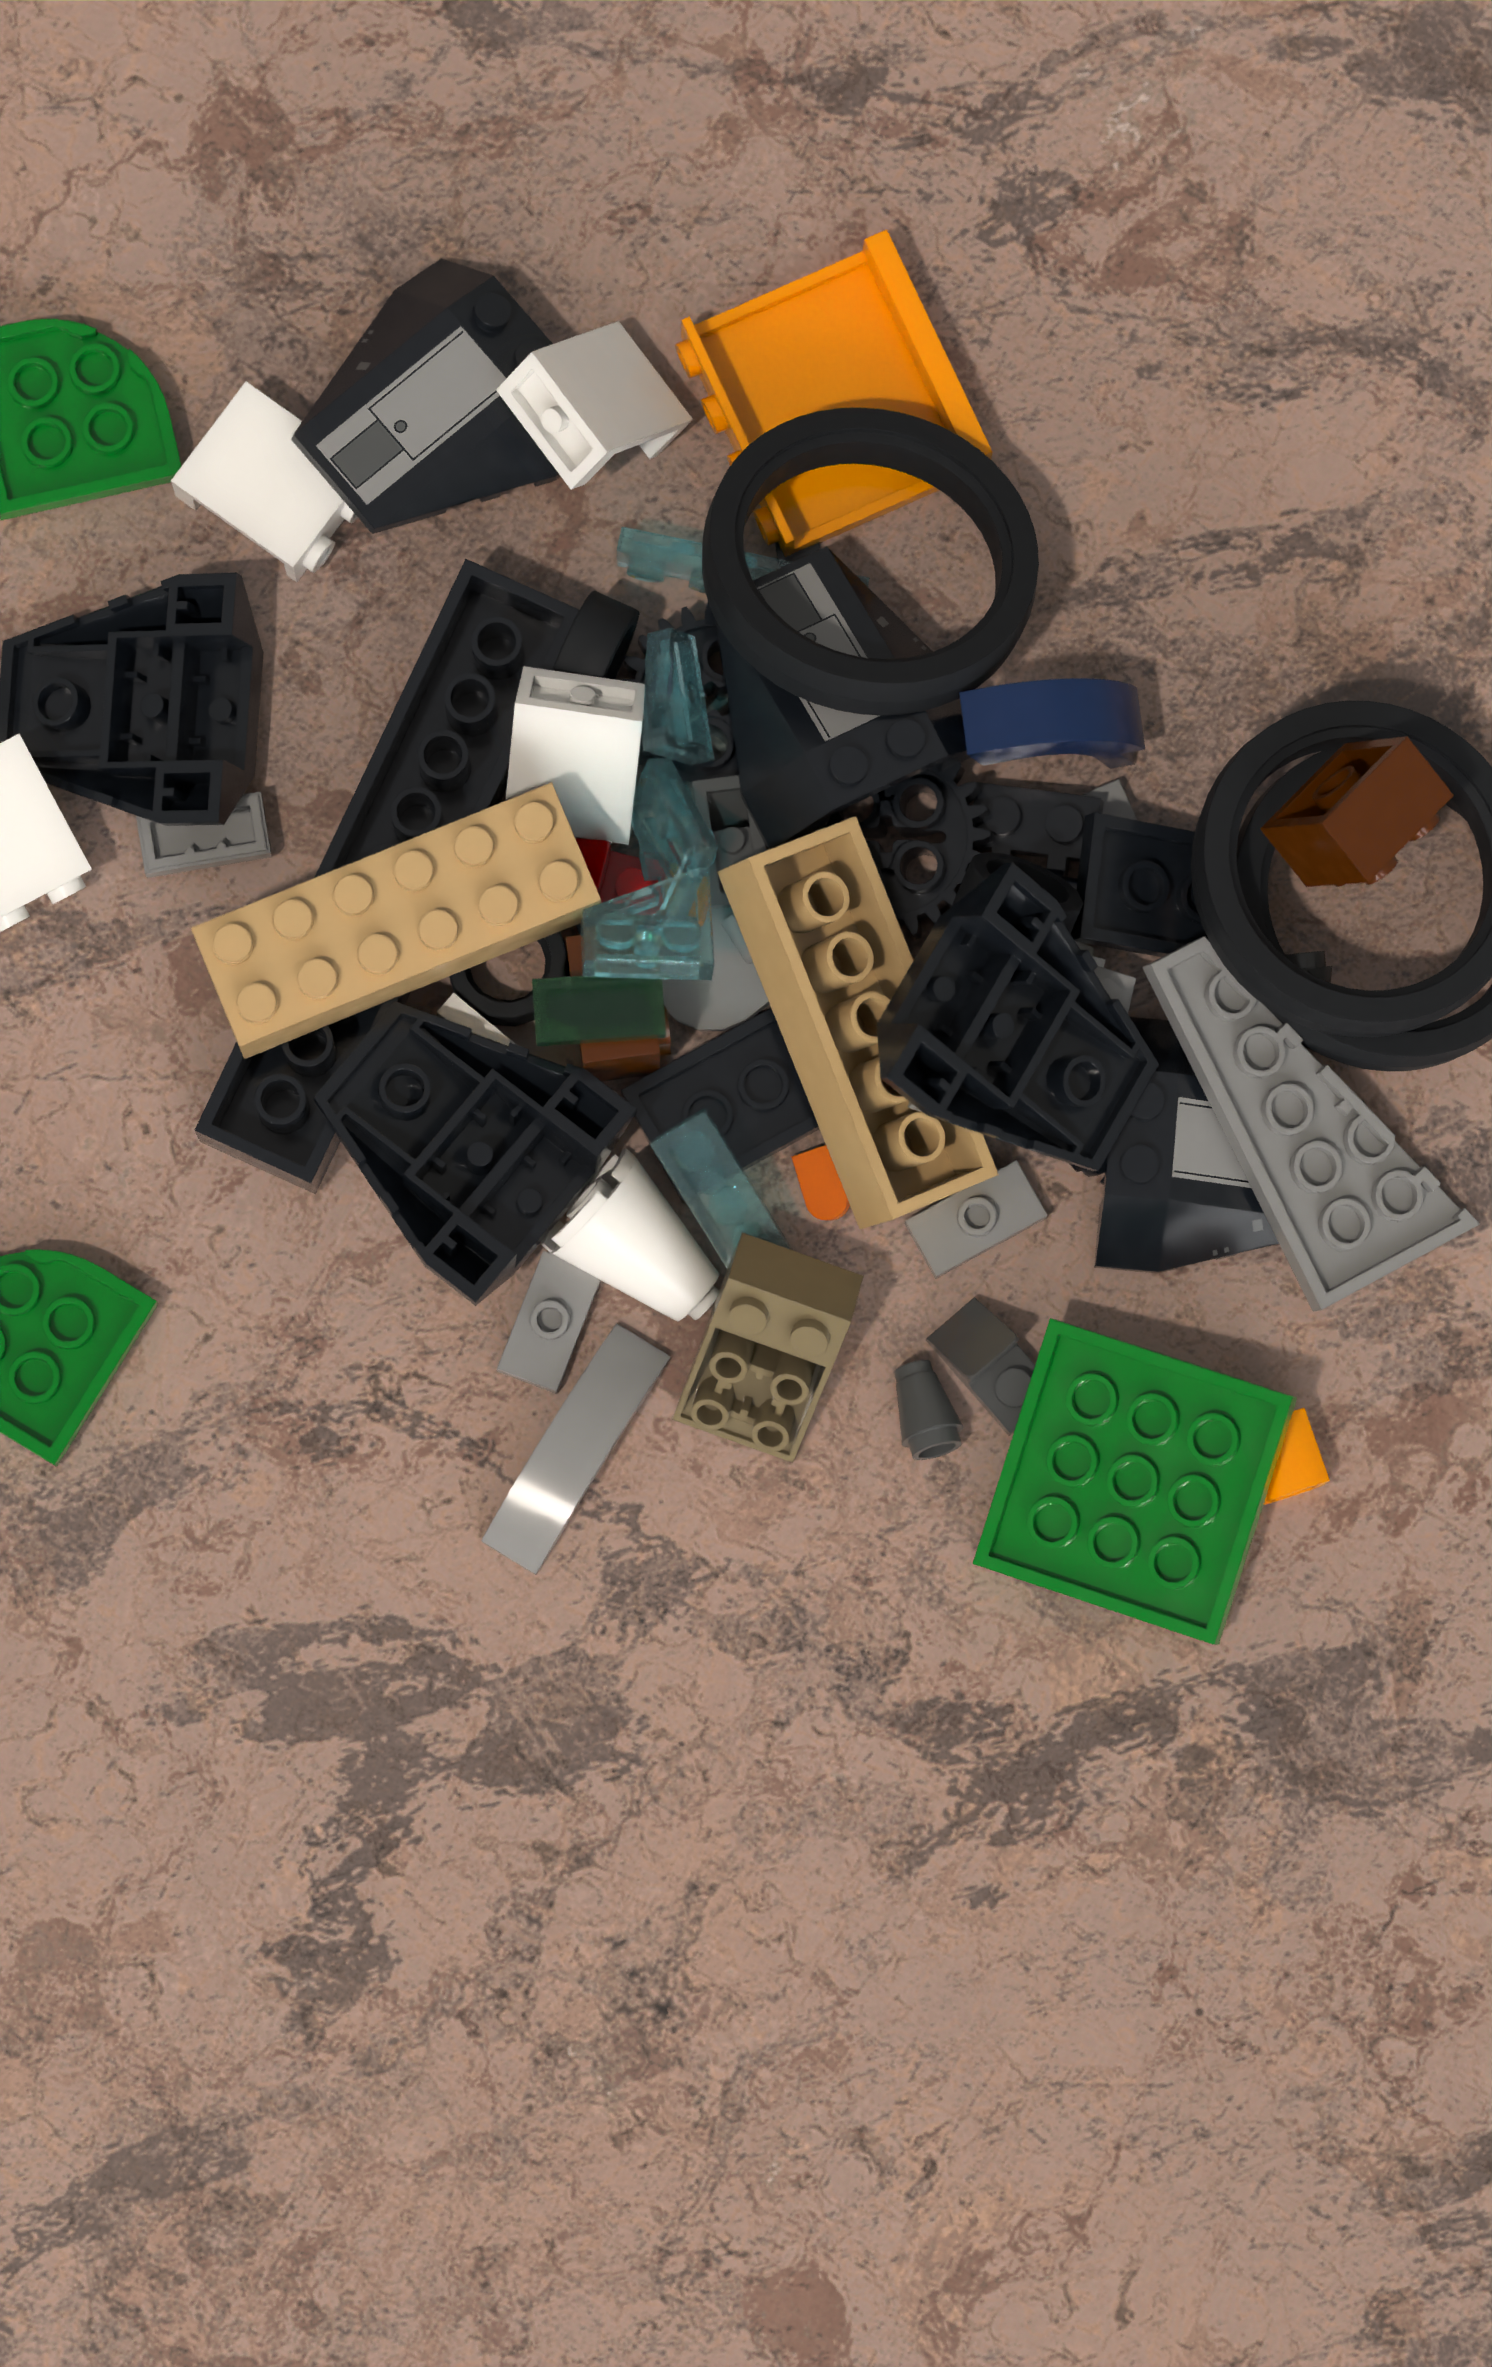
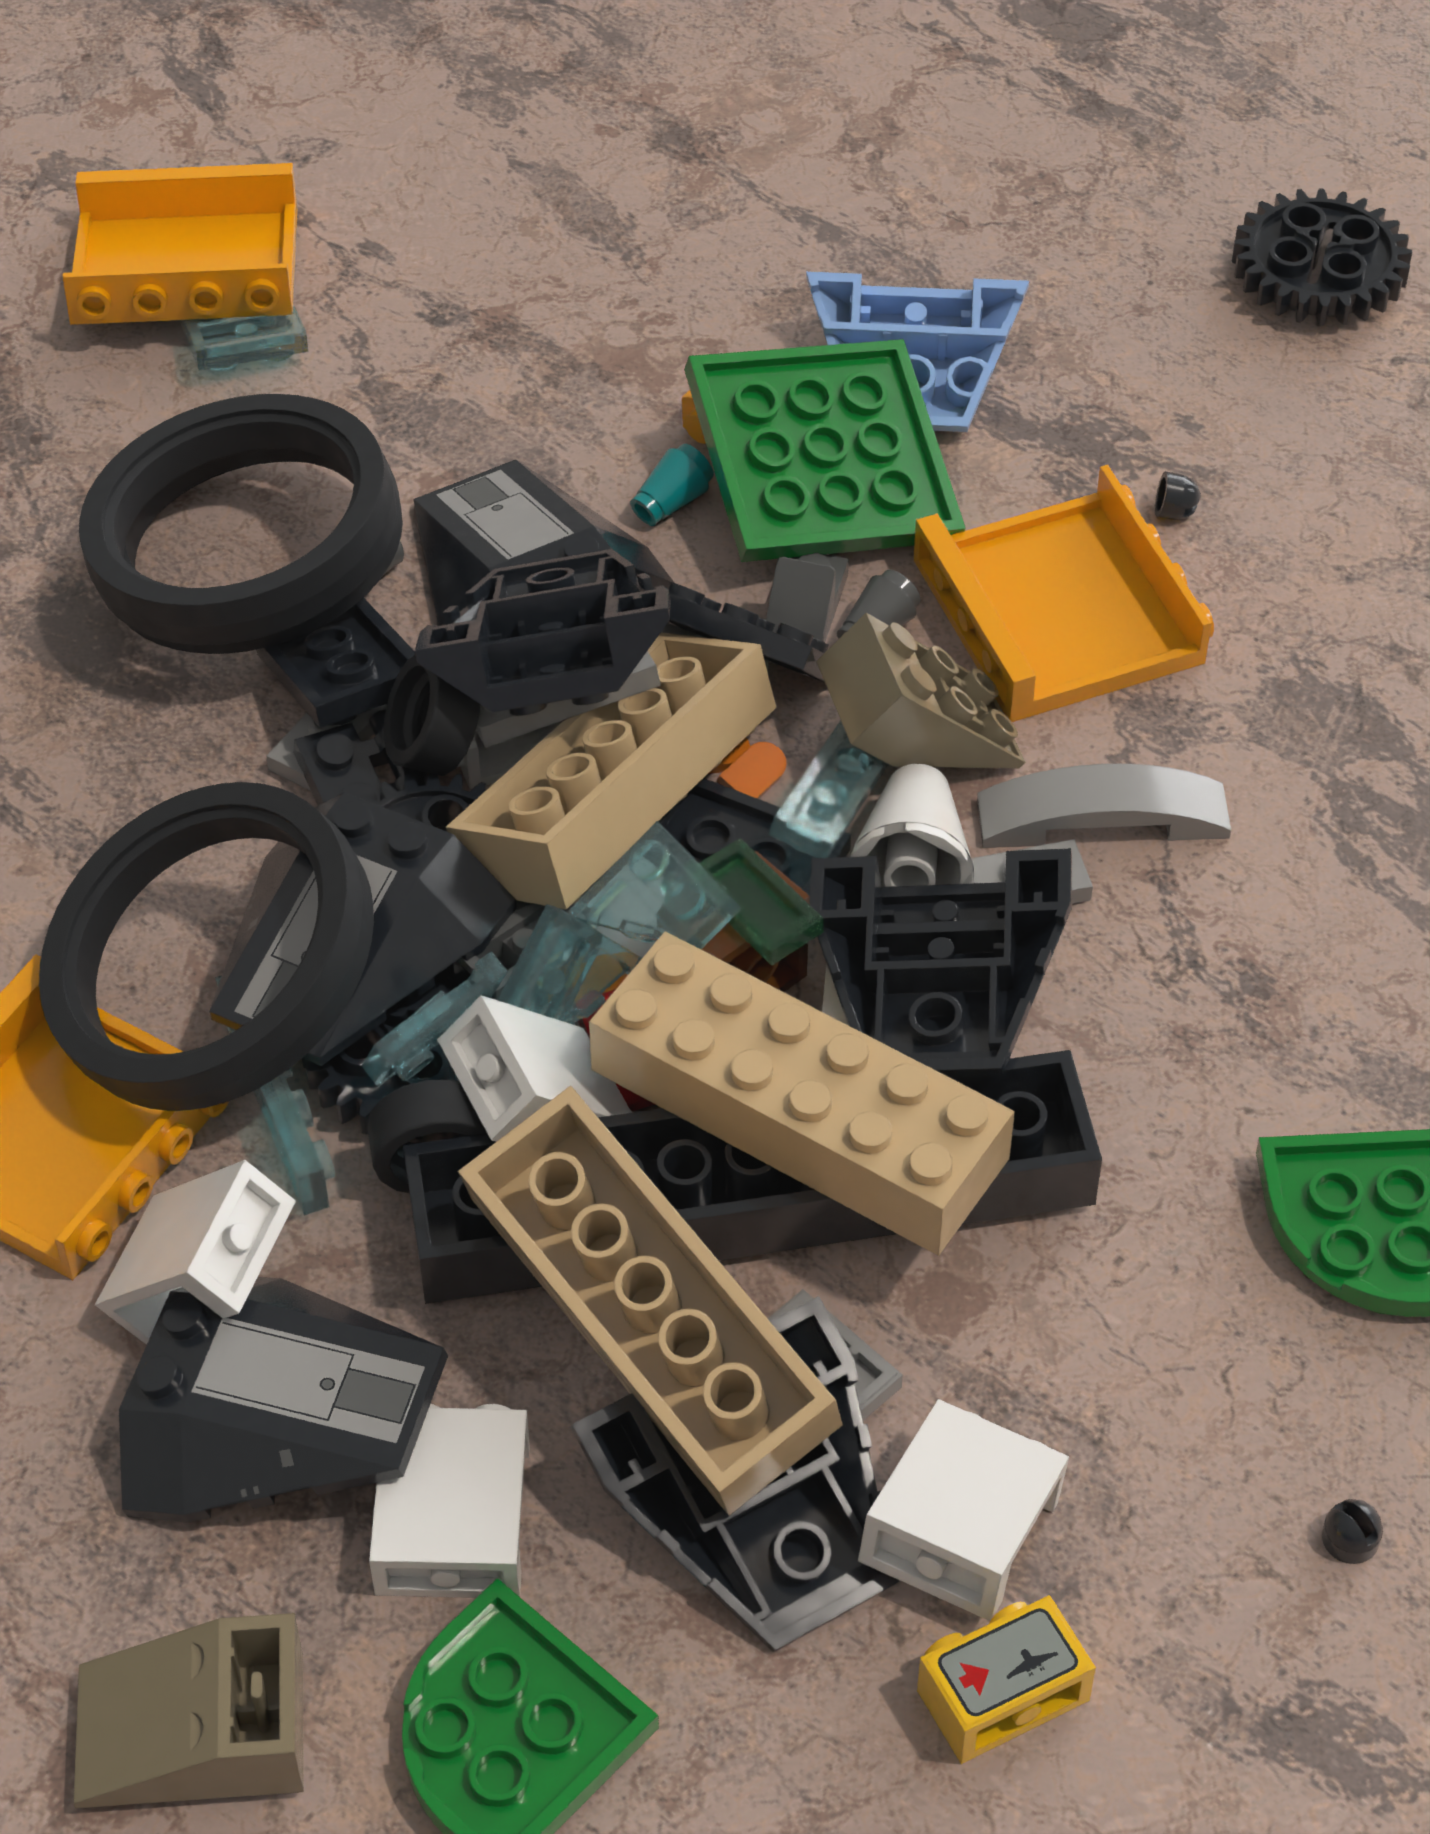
camera: 120 degrees left, 30 degrees down
(219, 204) = (193, 1716): none -> dark tan slope
(285, 678) = (651, 1300): none -> tan brick
(836, 1592) = (1065, 600): none -> light orange panel
(884, 1793) = (1176, 496): none -> black hinge
(957, 1250) = (786, 647): none -> black plate
(1053, 719) = (263, 747): dark blue arch -> none
(1145, 2151) = (1360, 265): none -> black gear
(1212, 1333) = (672, 484): none -> teal cone
(1242, 1706) = (947, 333): none -> light blue wedge
(1312, 1151) = (473, 485): light grey wing -> none
(1358, 813) = (202, 478): reddish brown brick -> none

